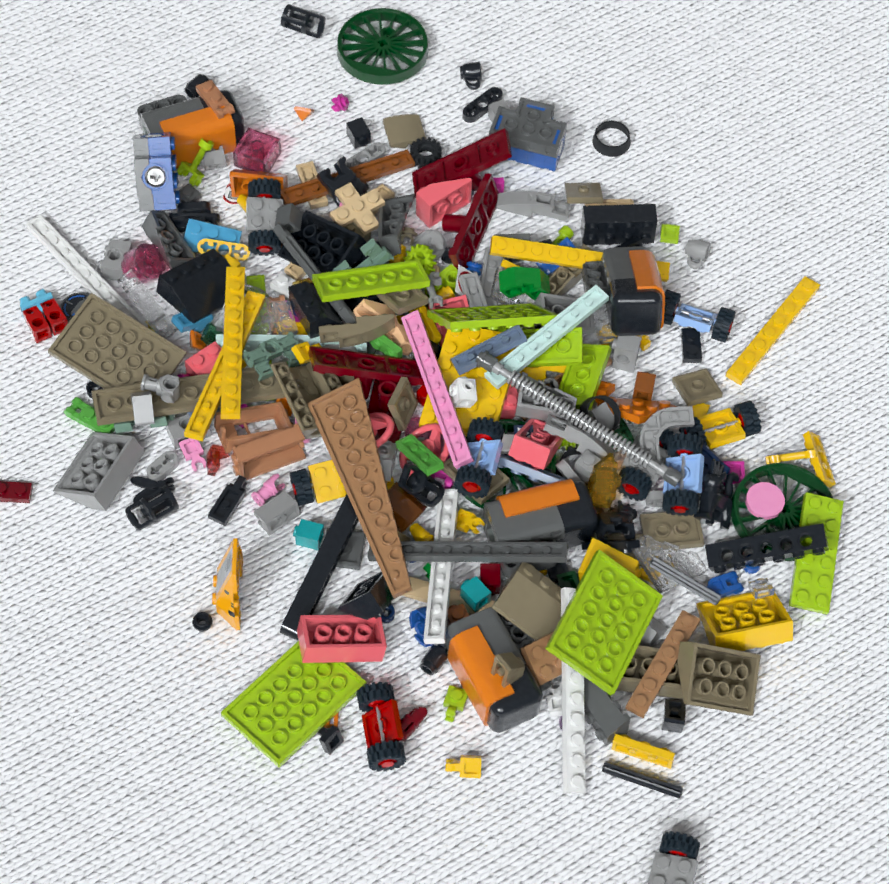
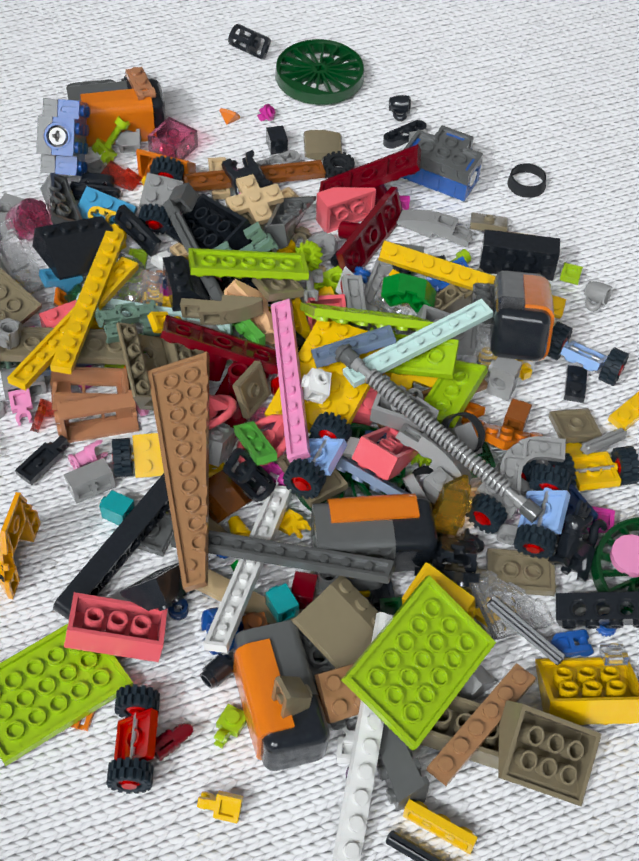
camera: 10 degrees right, 5 degrees down
(219, 199) = (123, 178): none -> clear red slope
(251, 258) = (137, 230): none -> black plate
(330, 738) = (73, 742): black tile -> none
(674, 716) = (485, 789): black slope -> none
(724, 398) = (603, 441): none -> light grey axle

